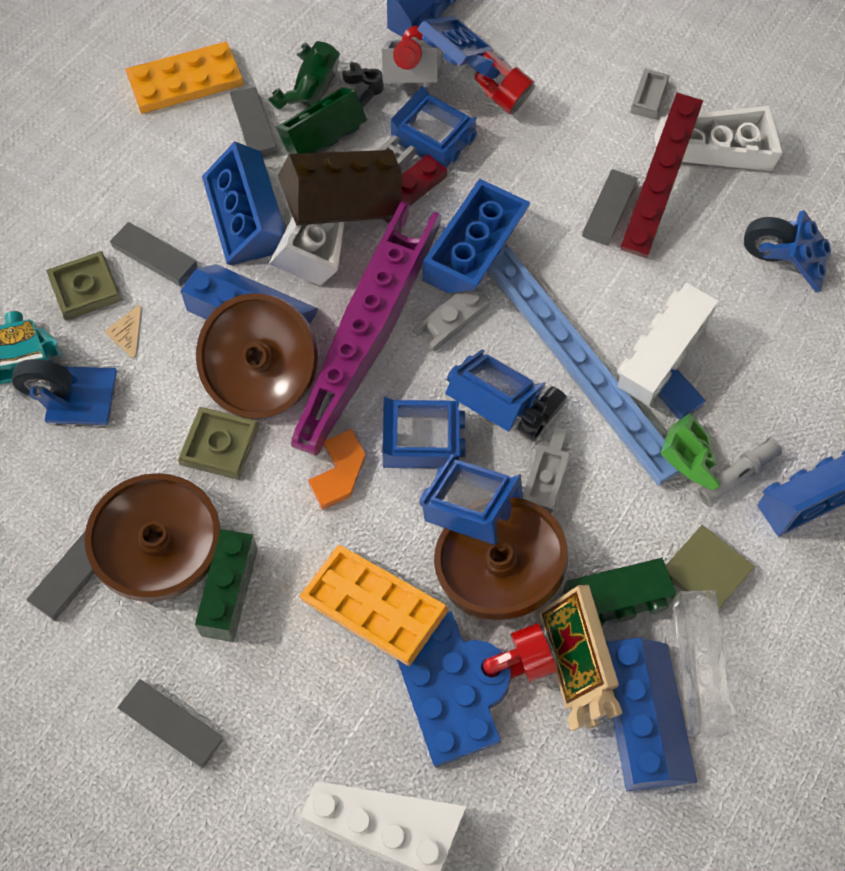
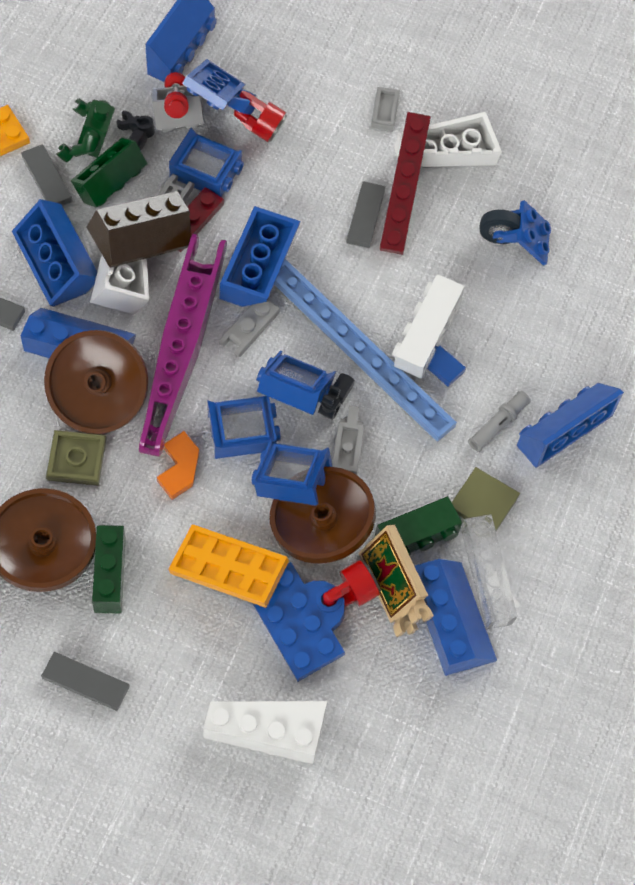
camera: 15 degrees left, 0 degrees up
(690, 451) = (458, 410): bright green slope -> none

